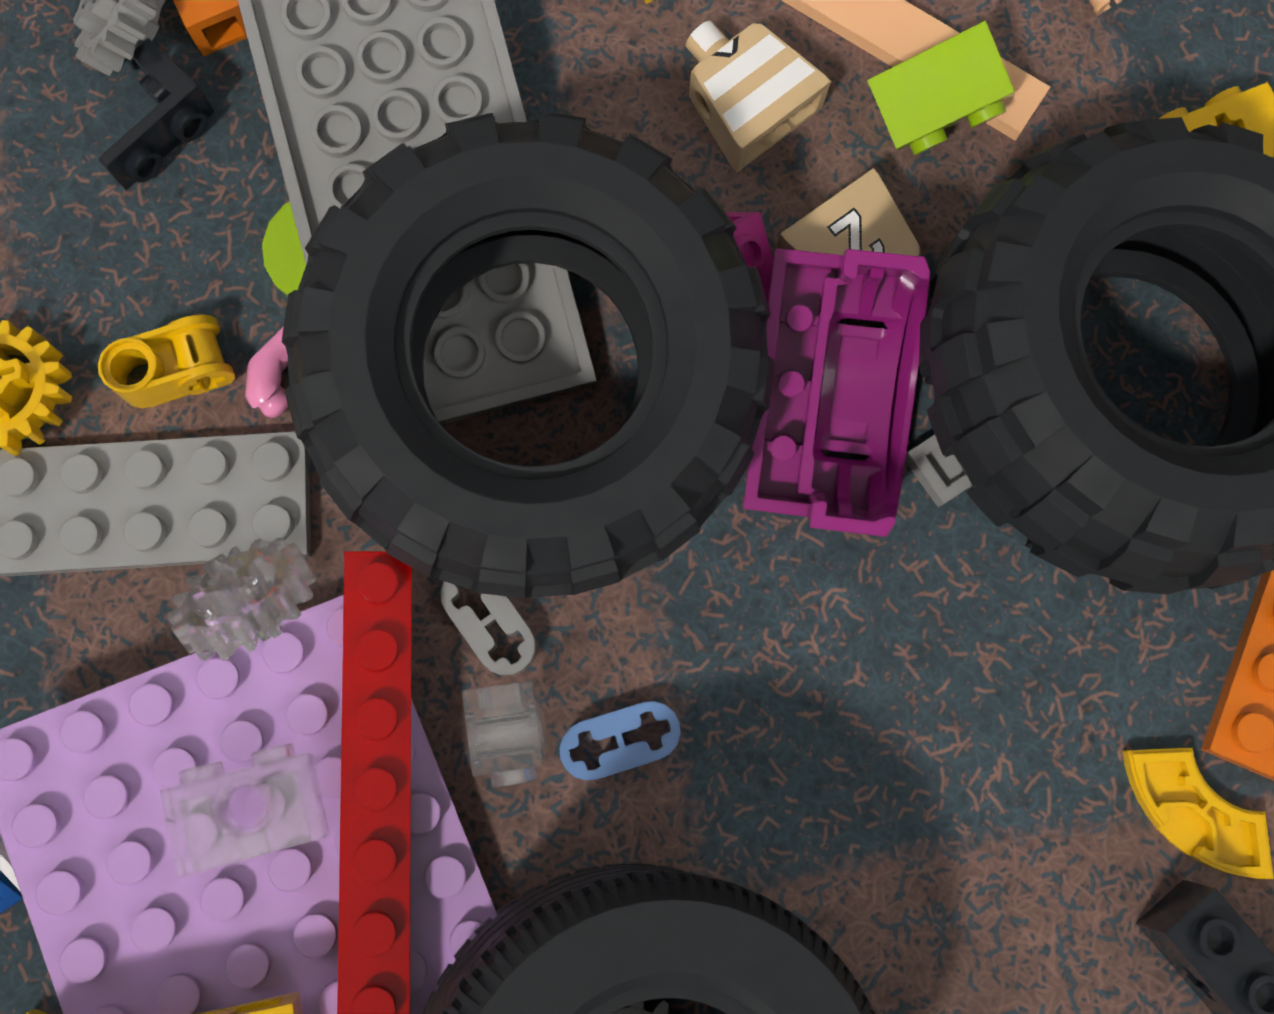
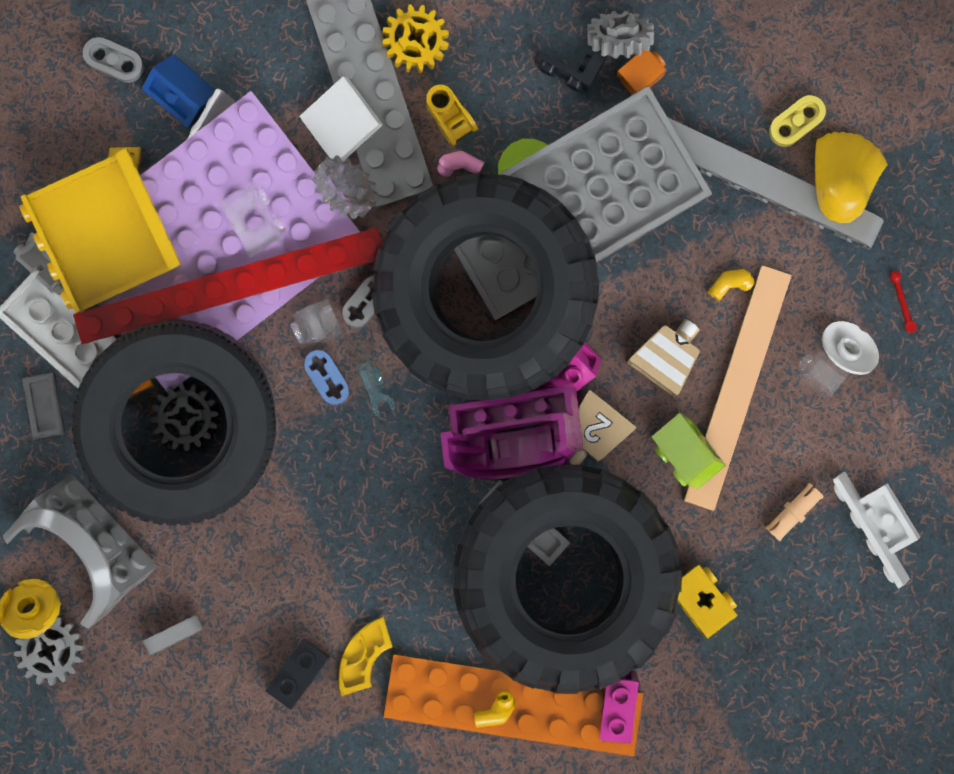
camera: 70 degrees right, 5 degrees up
(105, 573) = (341, 119): none -> white tile
(650, 650) = (372, 379): none -> clear light blue plate

